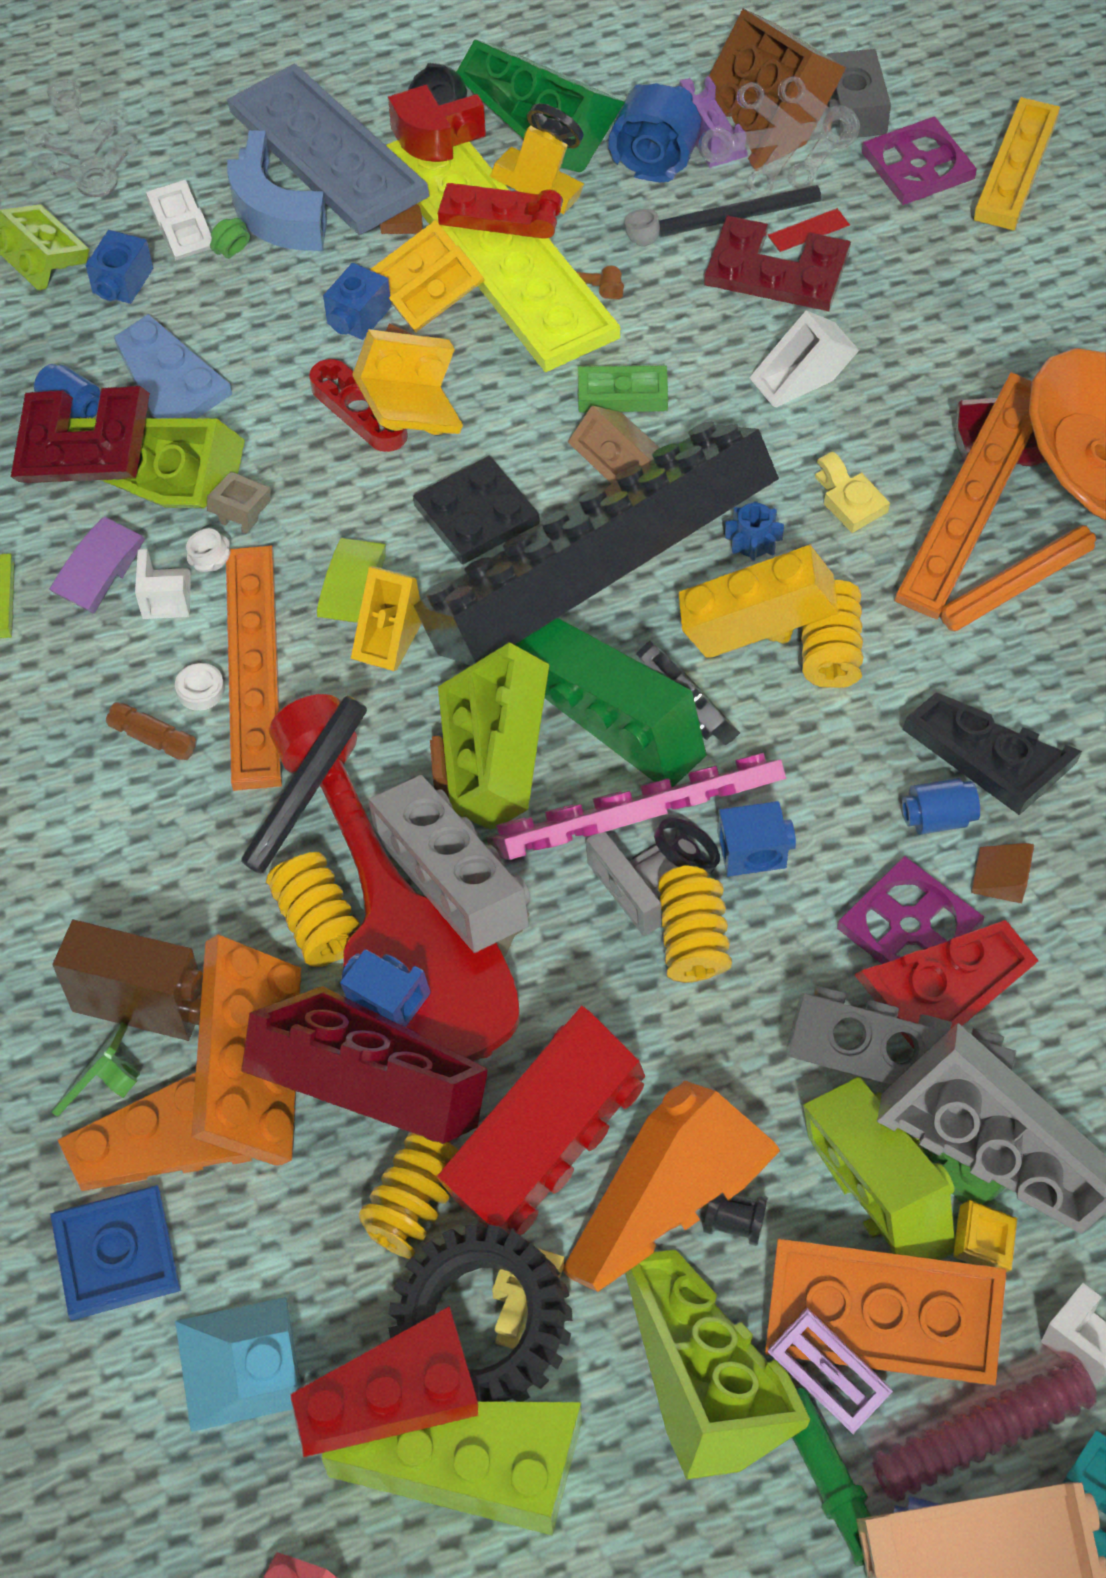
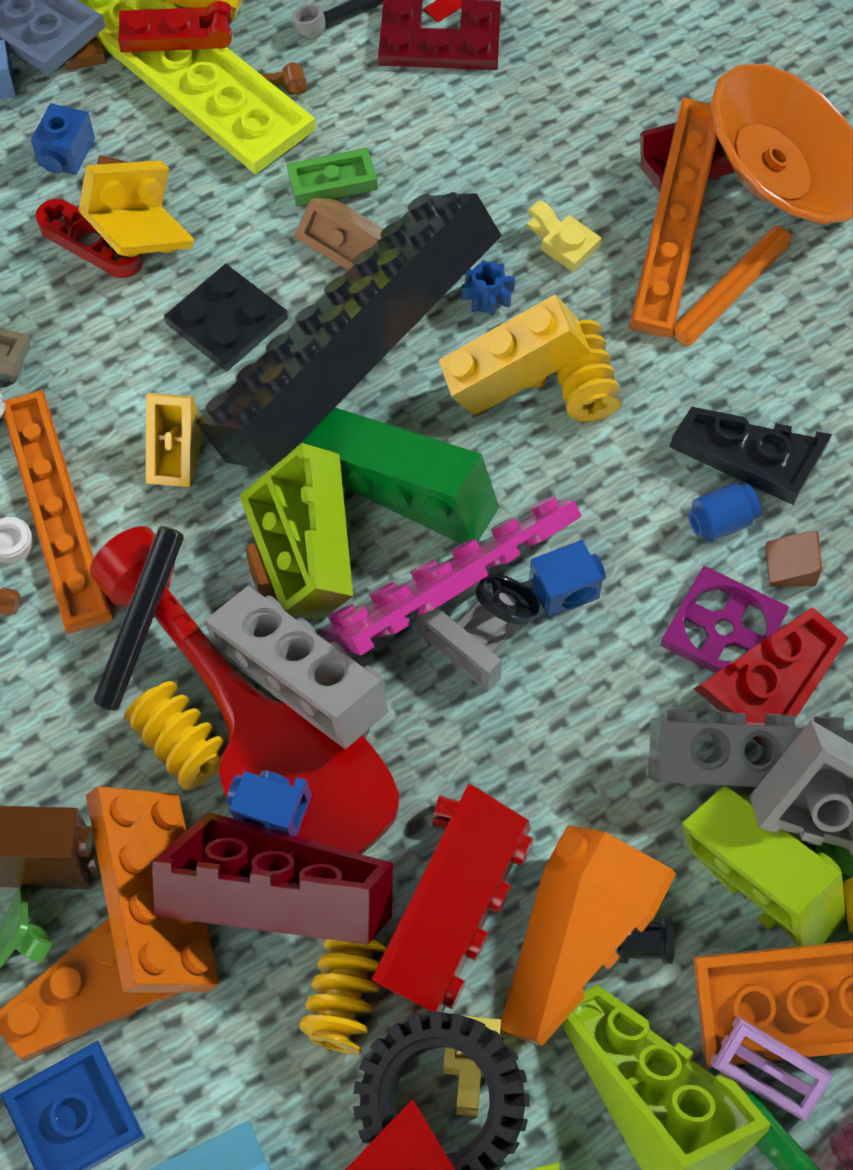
camera: 15 degrees left, 5 degrees up
(347, 577) = (125, 407): lime slope -> none
(427, 276) = (123, 102): yellow slope -> none
(693, 925) = (533, 673): yellow piece -> none
(711, 719) = (498, 473): black wing -> none
(804, 359) = (489, 119): white slope -> none

